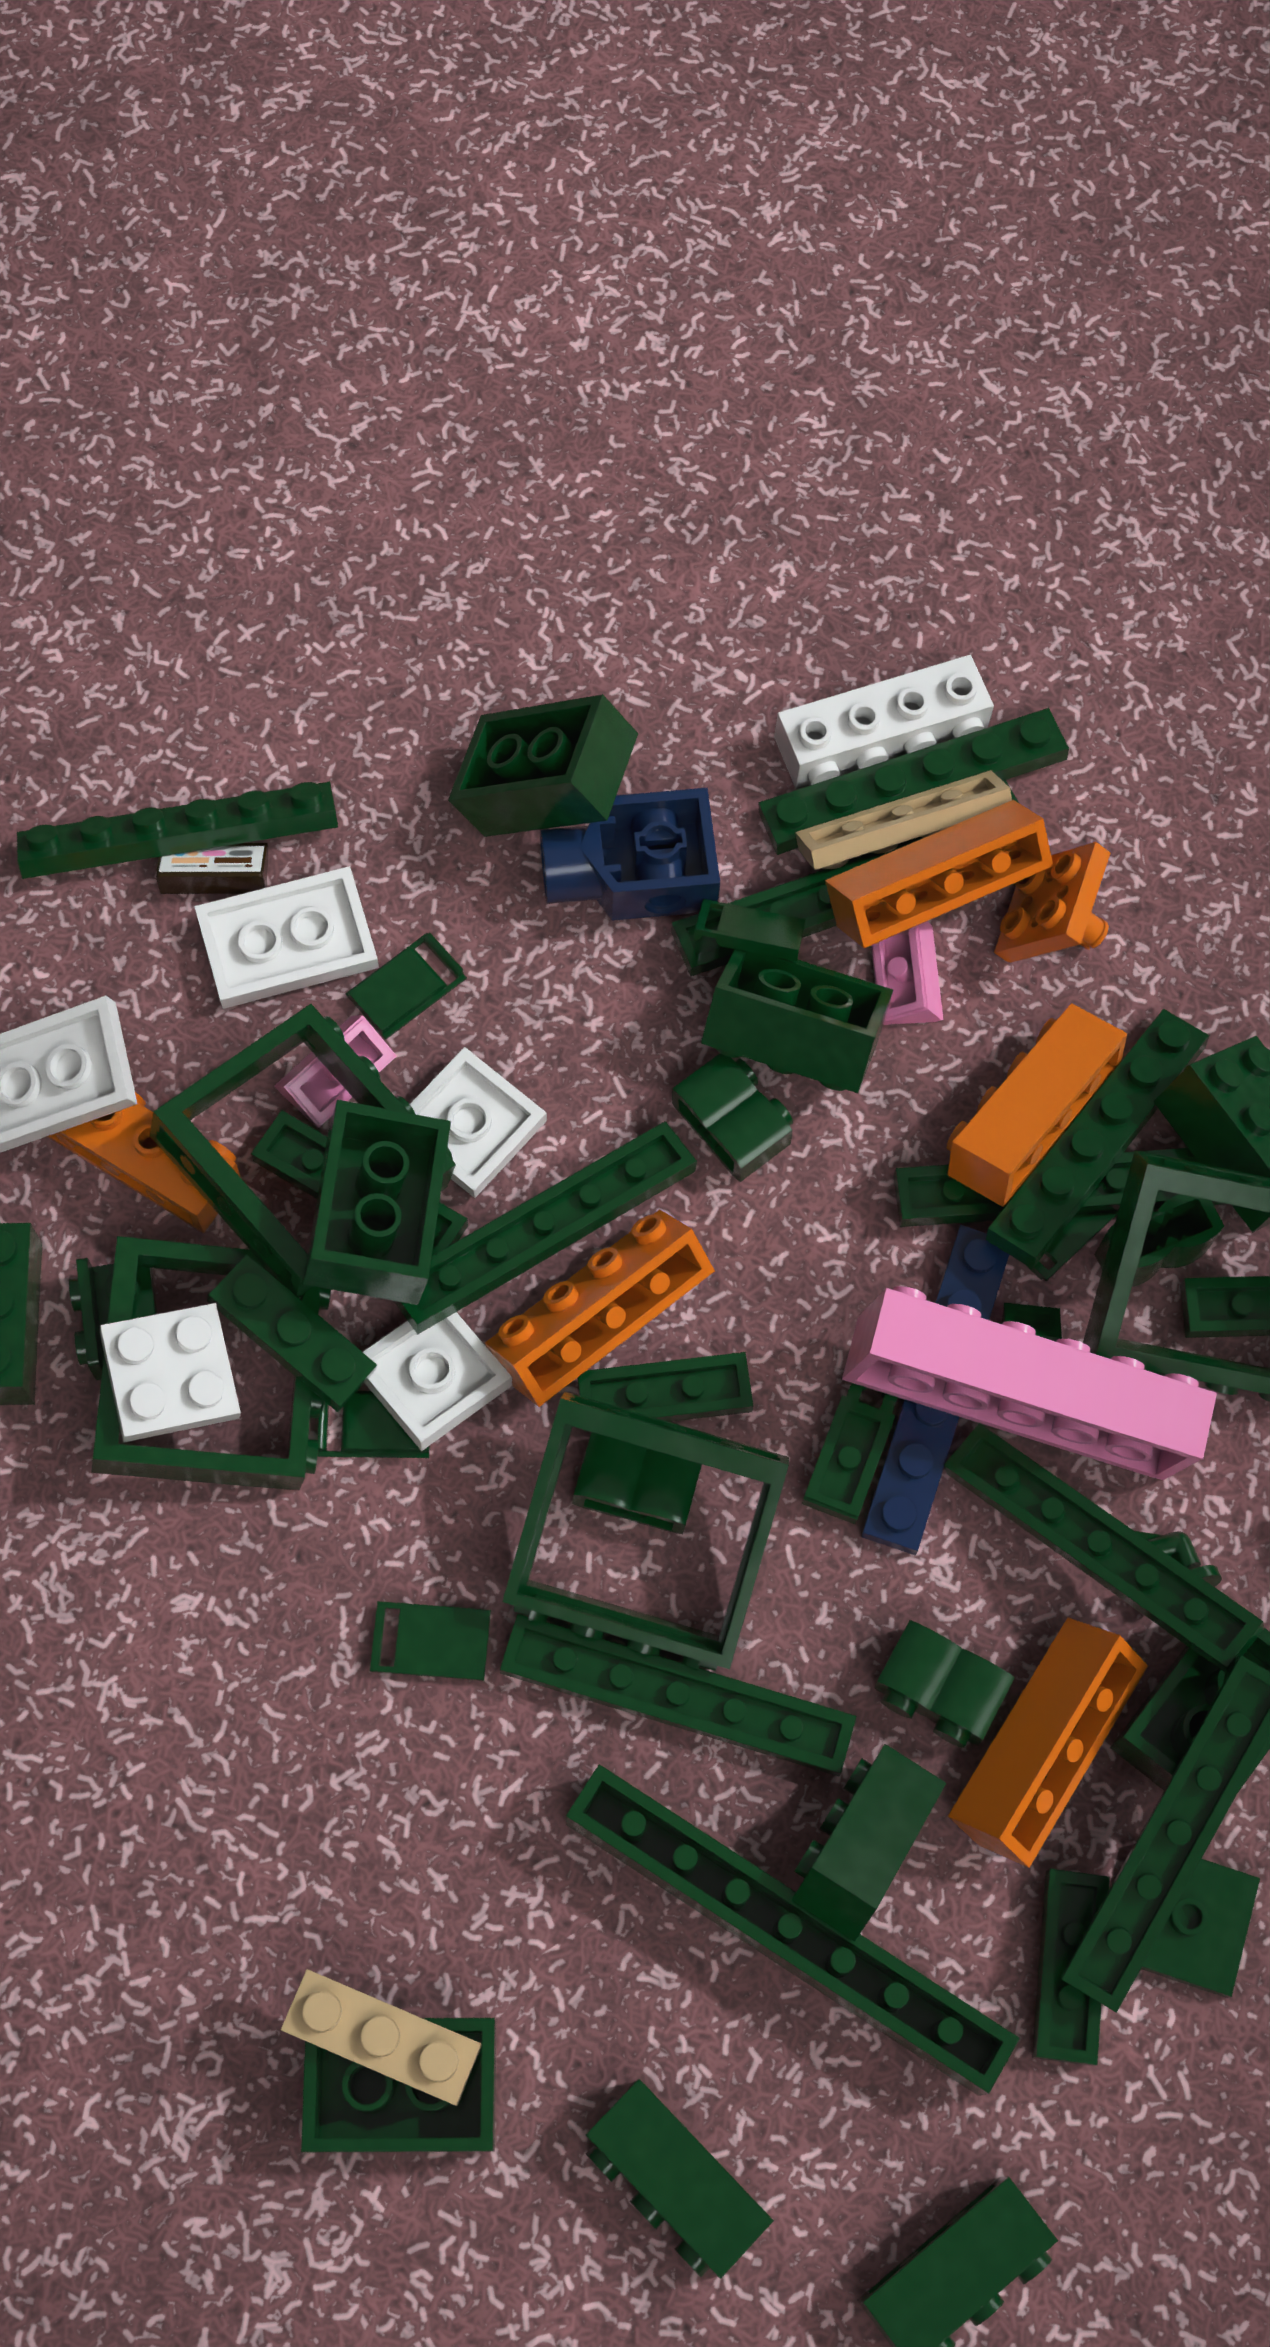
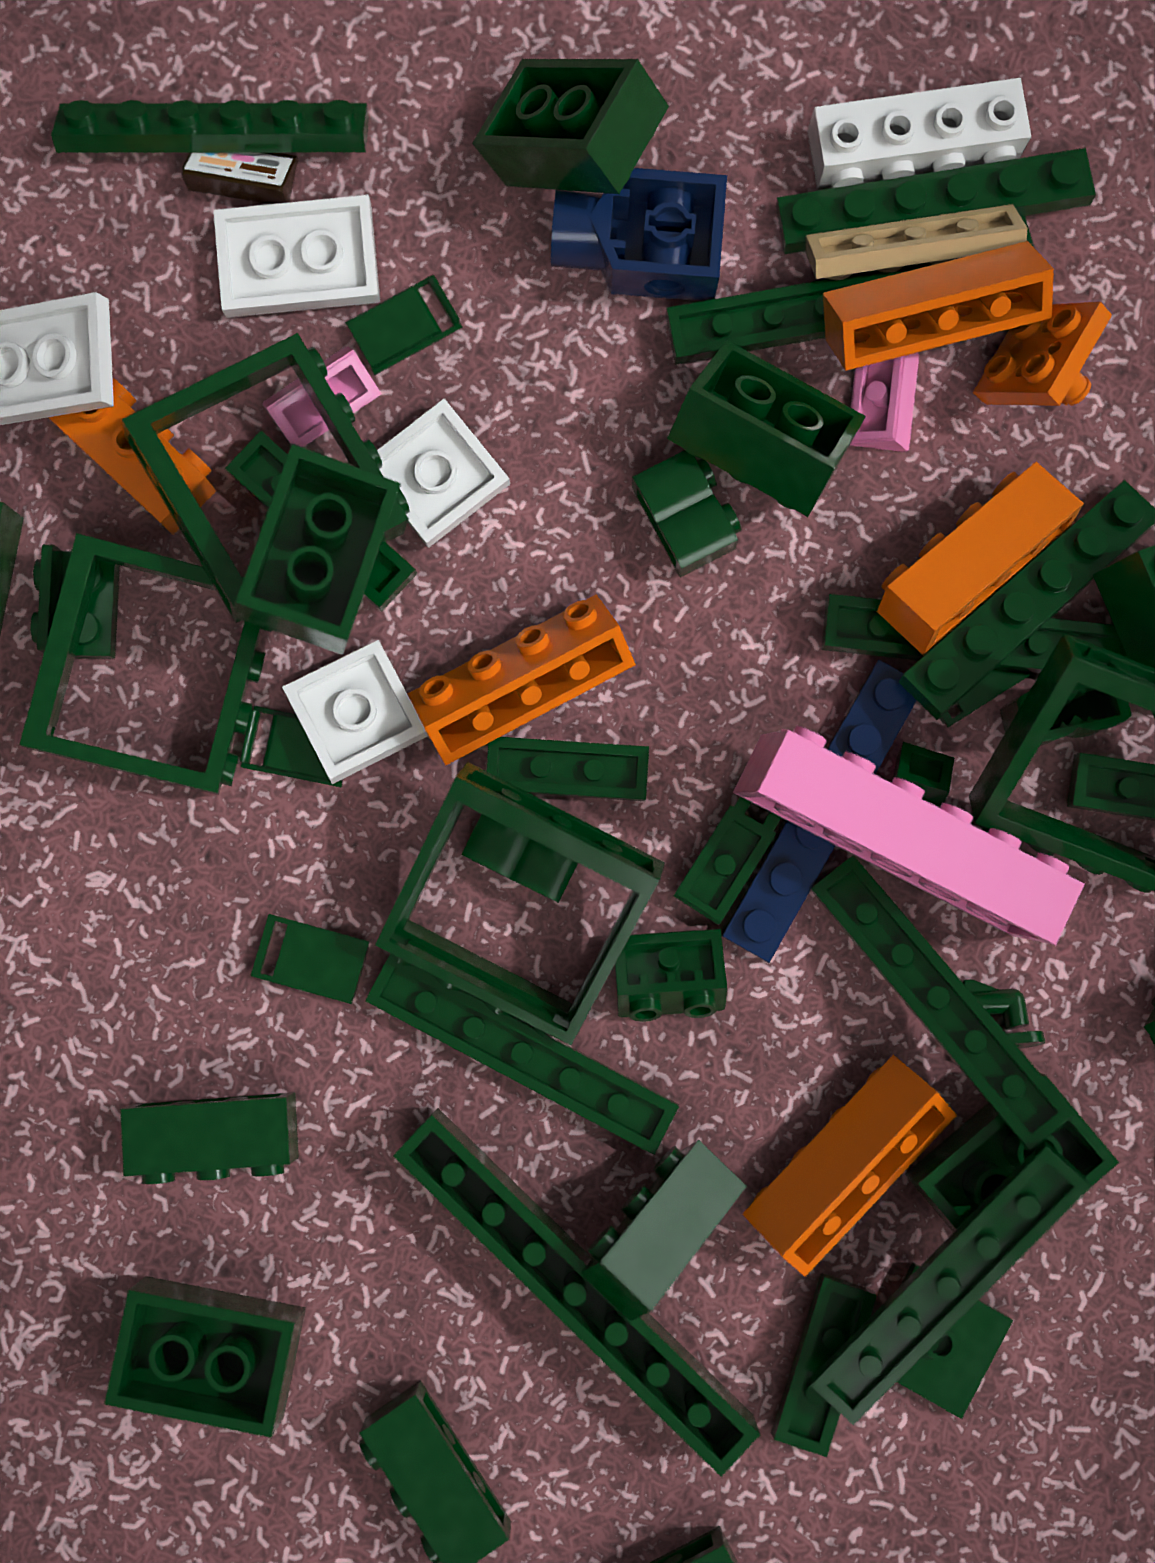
camera: 15 degrees right, 15 degrees up
(169, 1372) = (102, 674): white plate -> none
(292, 1333) = (226, 654): dark green plate -> none
(358, 1848) = (209, 1137): none -> dark green brick
(381, 2037) = (189, 1323): tan plate -> none
(549, 1223) = (489, 589): dark green plate -> none
(753, 930) = (742, 331): dark green piece -> none
(818, 1584) = (671, 975): none -> dark green bracket
(943, 1684) = (765, 1092): dark green brick -> none

